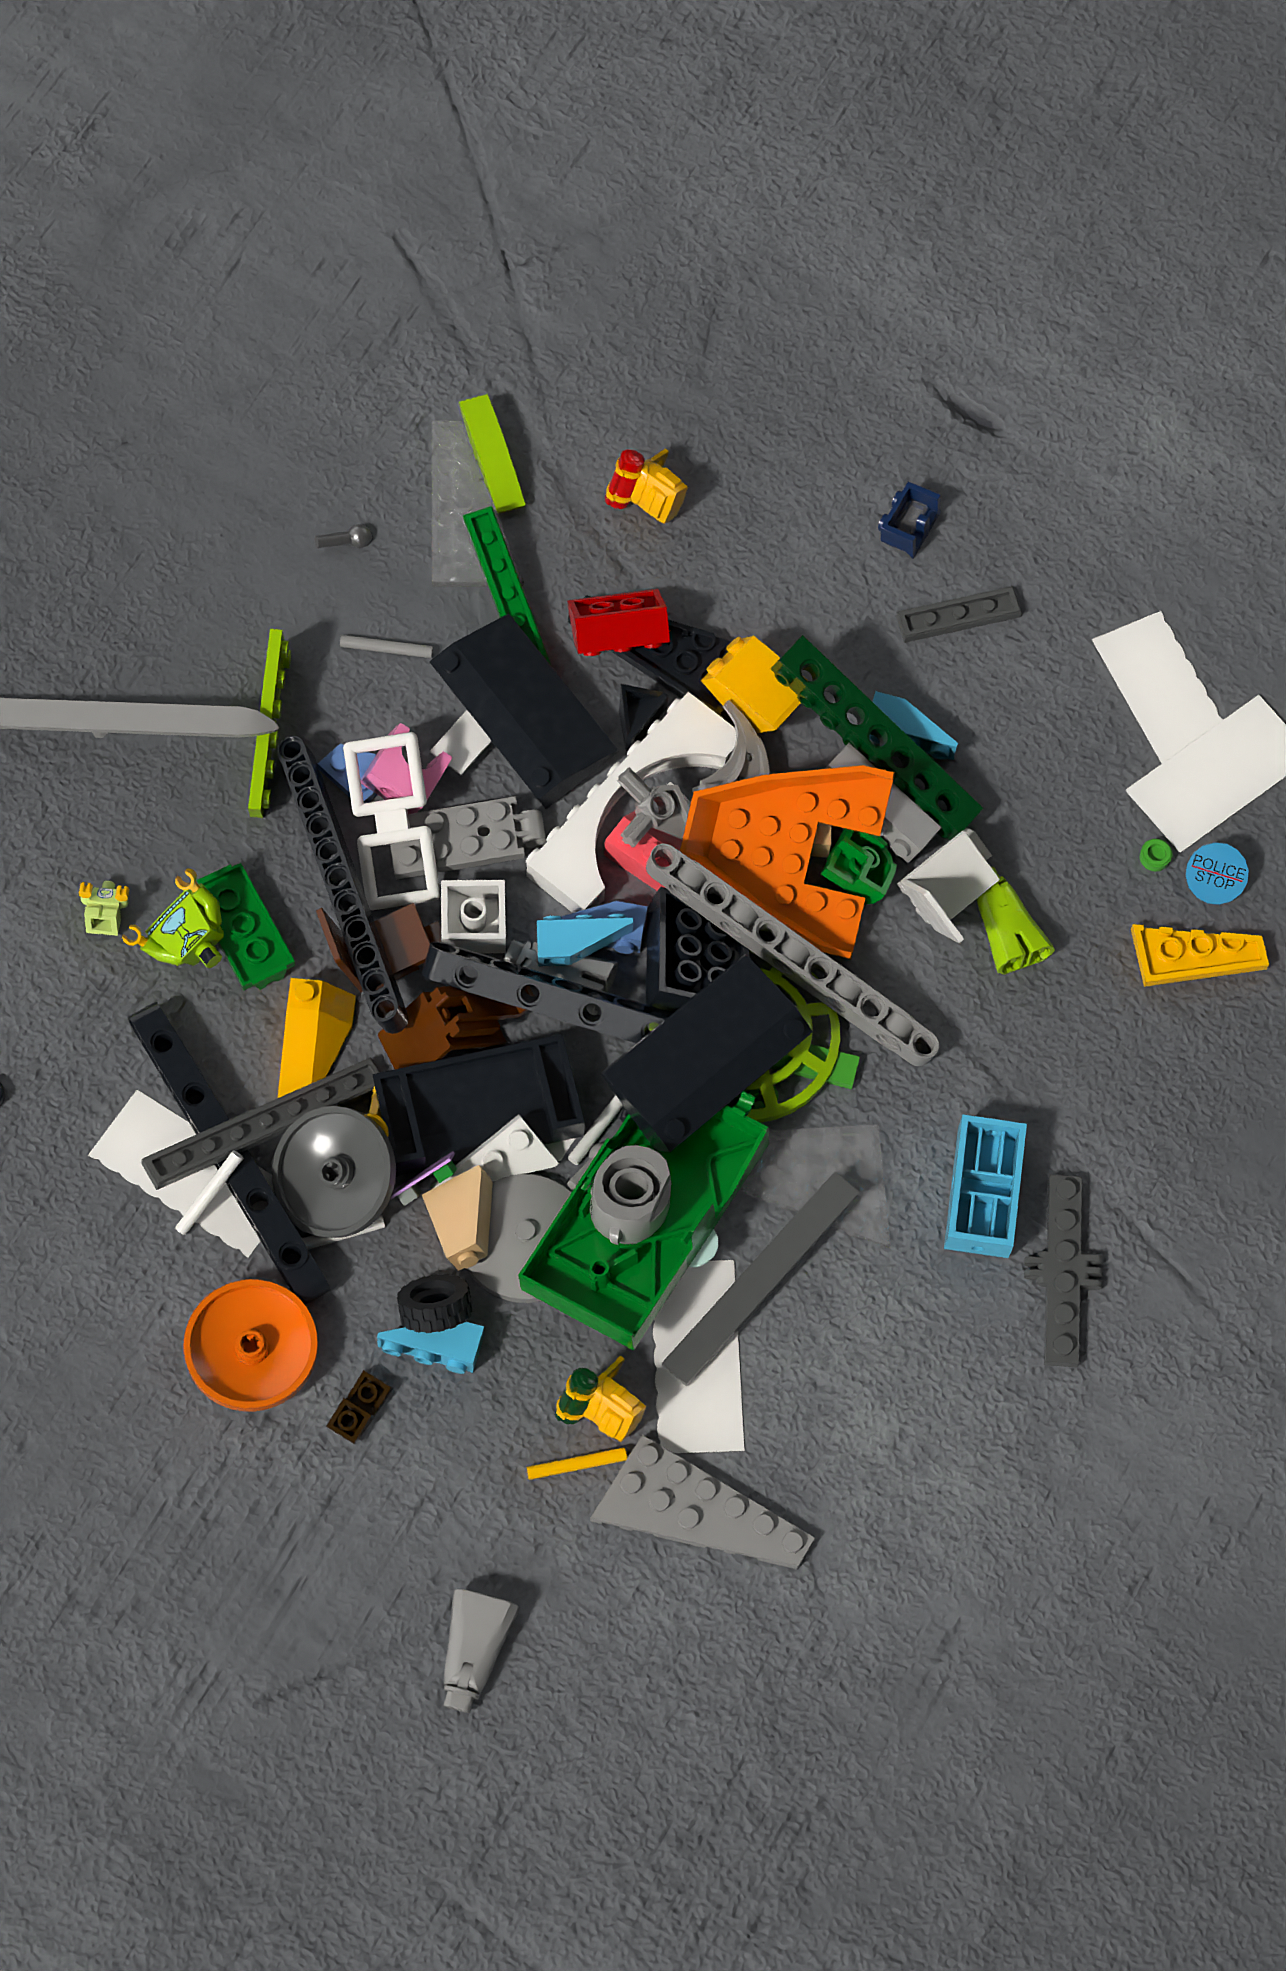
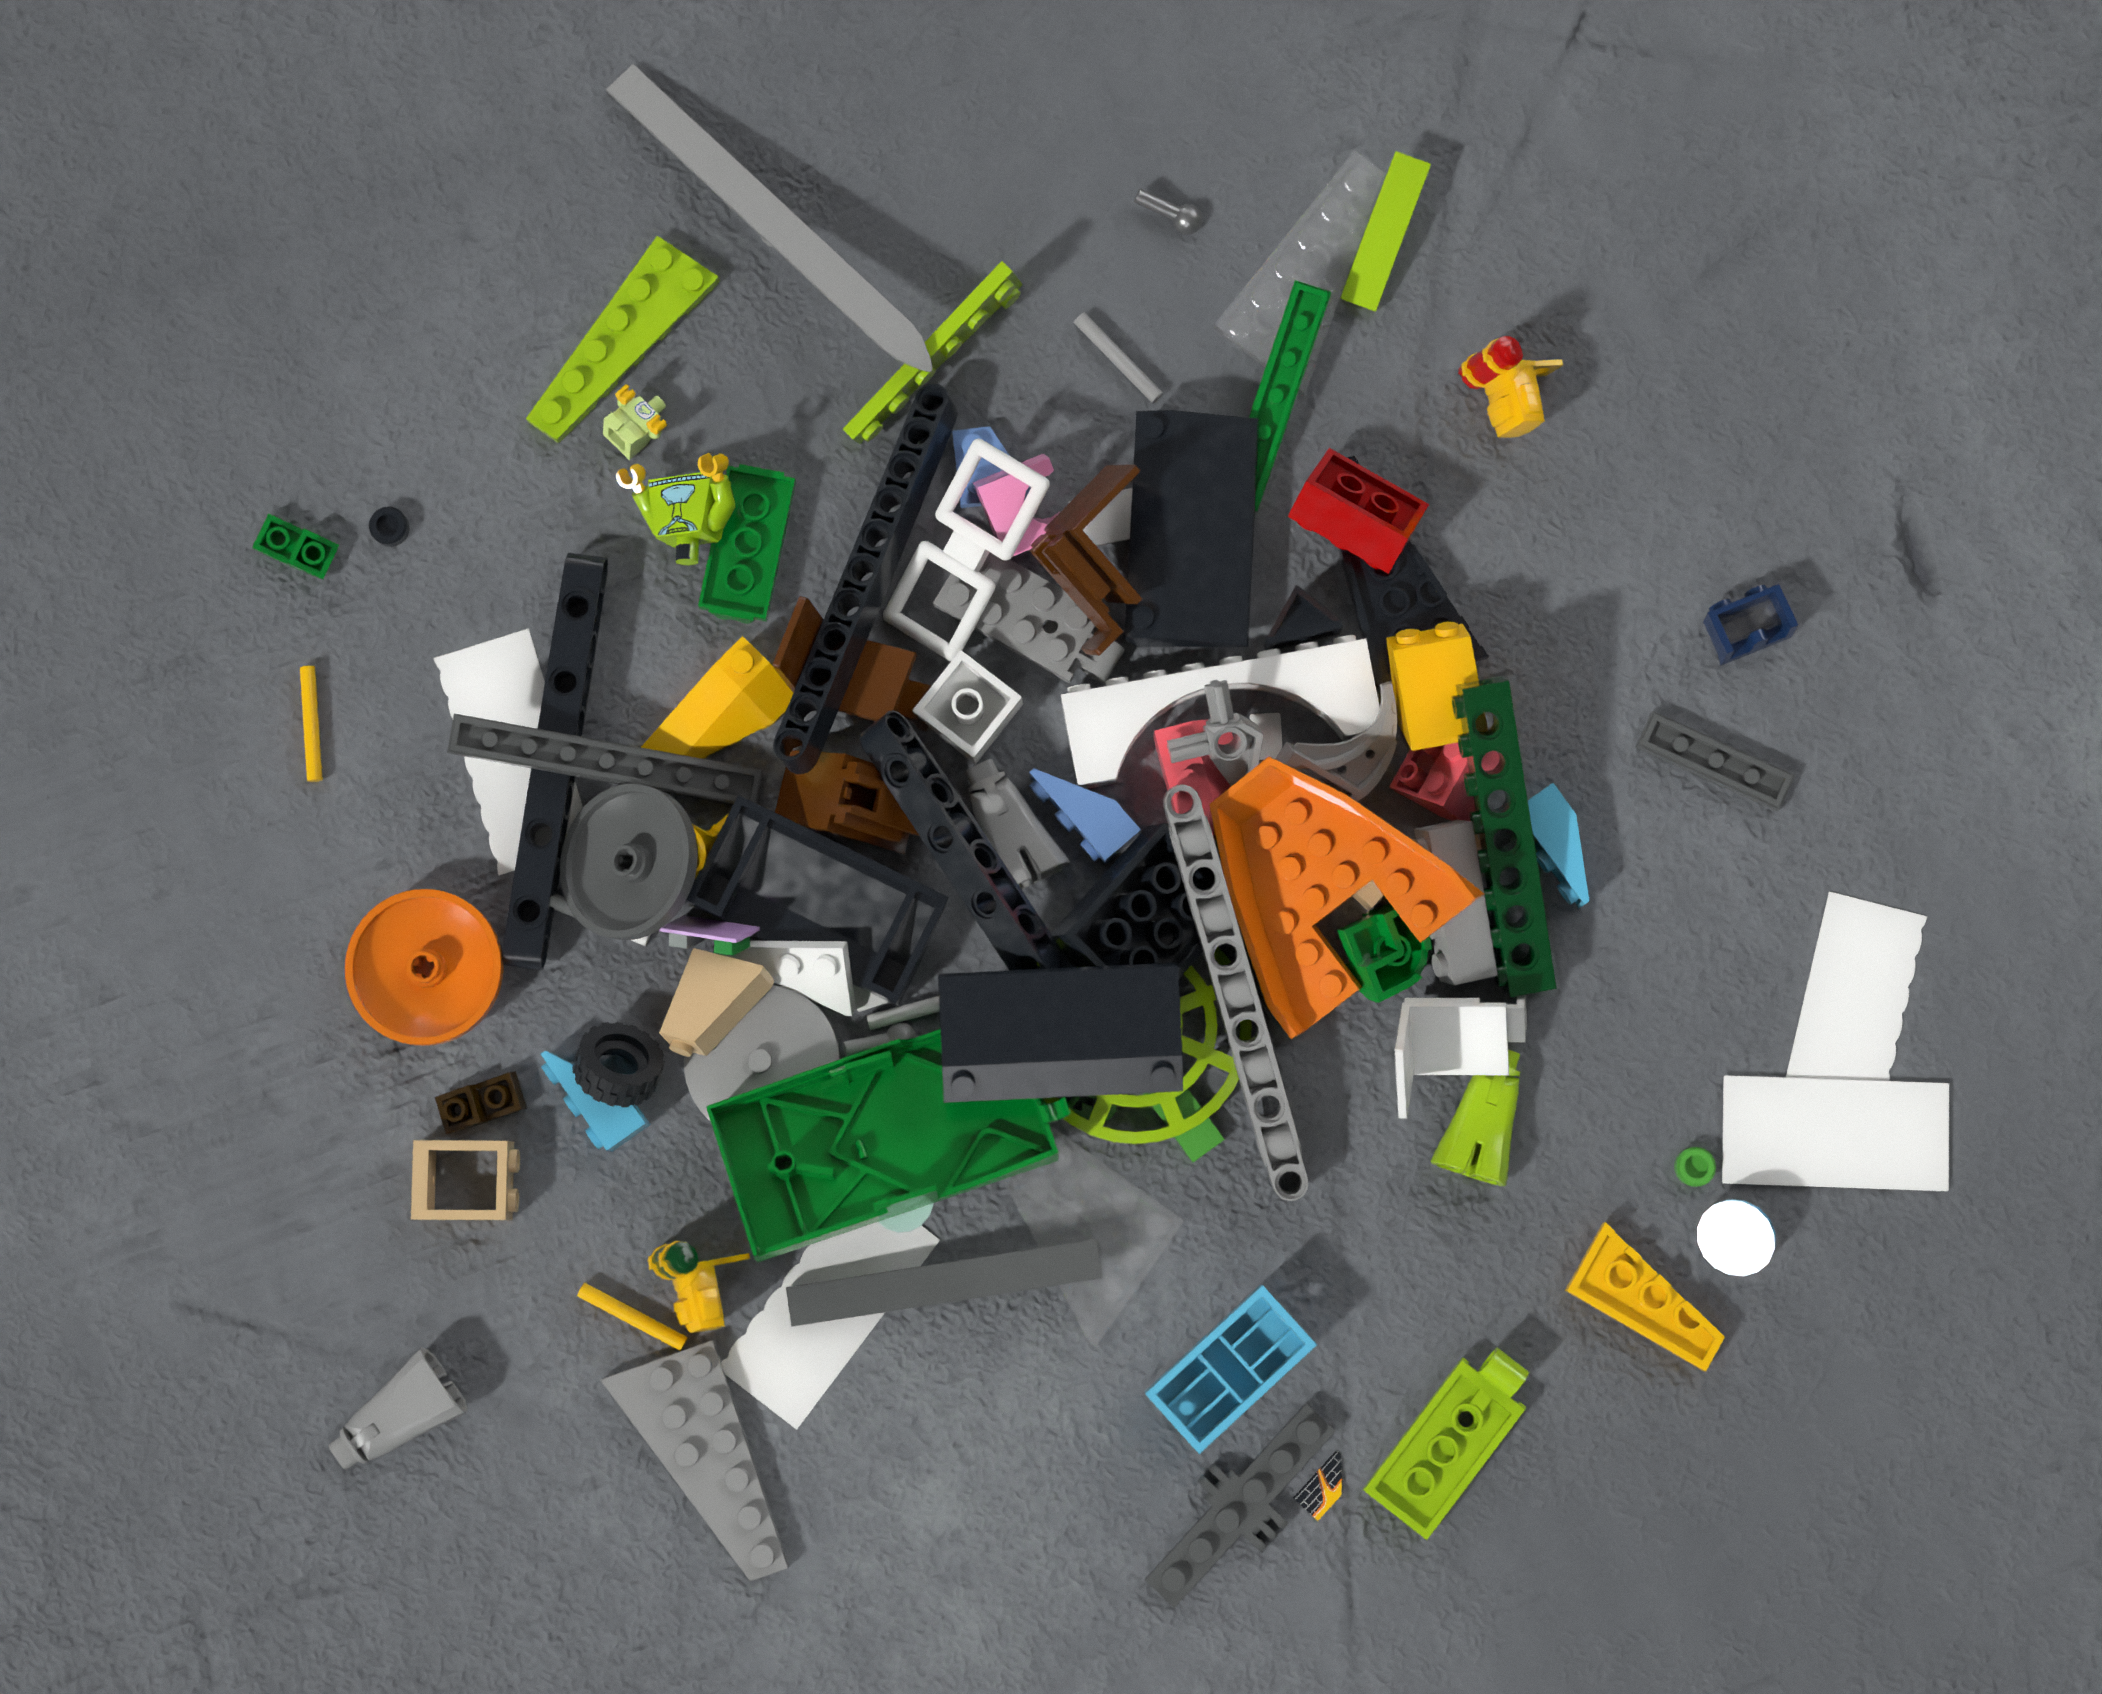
camera: 50 degrees right, 15 degrees up
(38, 1257) = (311, 723): none -> yellow bar
(49, 845) = (639, 315): none -> lime wing
(209, 1192) = (503, 788): white bar -> none
(363, 1482) = (425, 1178): none -> tan window
(477, 766) = (1080, 564): none -> reddish brown piece
(571, 940) = (1033, 810): medium azure slope -> none
(630, 1195) = (881, 1089): light grey piece -> none
(803, 742) = (1436, 780): none -> coral slope
(1104, 1221) = (1322, 1488): none -> sticker
(1159, 1142) = (1440, 1456): none -> lime hinge

